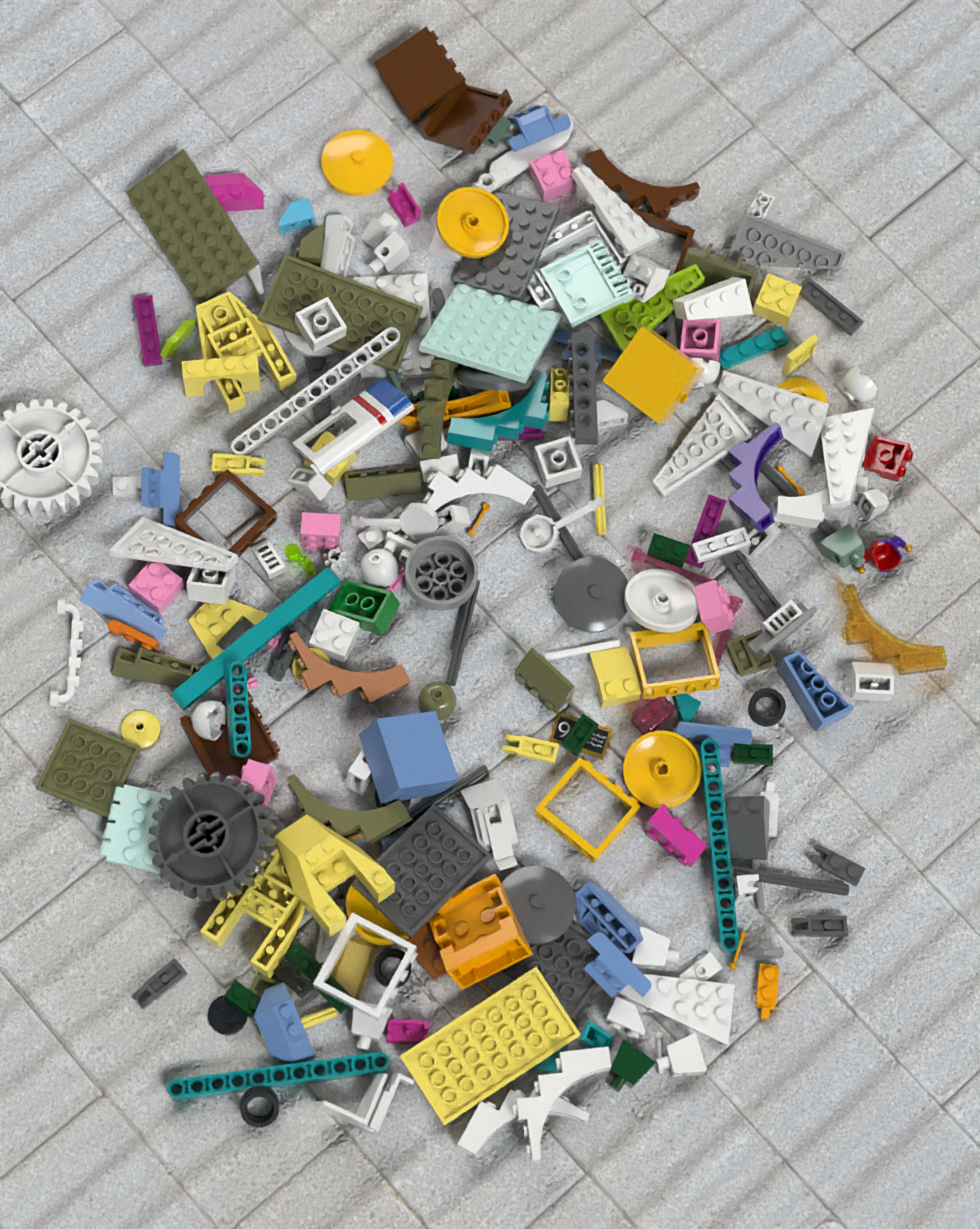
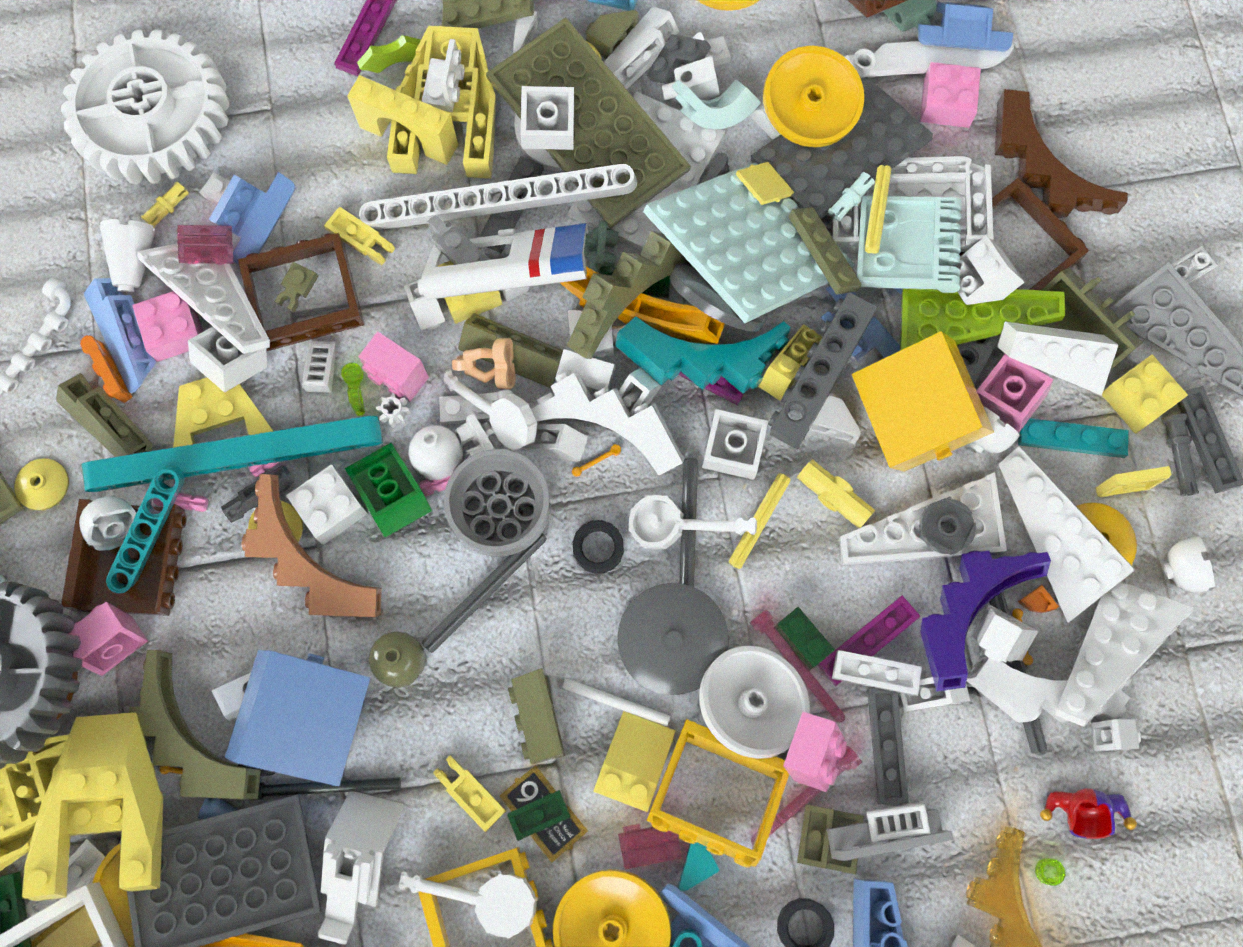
camera: 40 degrees right, 5 degrees up
(94, 515) = (165, 204): none -> light yellow pin
(95, 556) = (121, 247): none -> white cone
(149, 522) = (205, 244): none -> clear pink brick
(225, 513) = (298, 283): none -> olive plate
(235, 336) = (443, 79): none -> white bracket
(311, 434) = (454, 243): none -> light grey hinge
(364, 238) = (675, 52): none -> dark grey plate
(387, 497) = (502, 355): none -> light nougat piece
(404, 205) = (749, 40): dark pink hinge -> none
(418, 261) = (720, 112): none -> light aqua arch
(475, 293) = (764, 183): none -> light yellow piece
(514, 554) = (597, 526): none -> black tyre
(534, 273) = (851, 196): none -> light aqua pin
(539, 315) = (824, 250): none -> olive plate
(556, 272) = (878, 209): none -> light yellow axle
(593, 787) = (502, 905): none -> white piece
(614, 213) = (998, 182): white wing -> none
(634, 458) = (835, 493): none -> light yellow piece
(707, 449) = (932, 532): none -> dark grey plate
(779, 481) = (1003, 635): none -> white wedge
(788, 454) = (1039, 601): none -> orange tile
(813, 316) = (1179, 442): none -> dark grey pin
(843, 548) = (1041, 773): sand green torso -> none
(876, 604) = (1060, 871): none -> clear neon green bush
(888, 458) = (1173, 684): red plate -> none

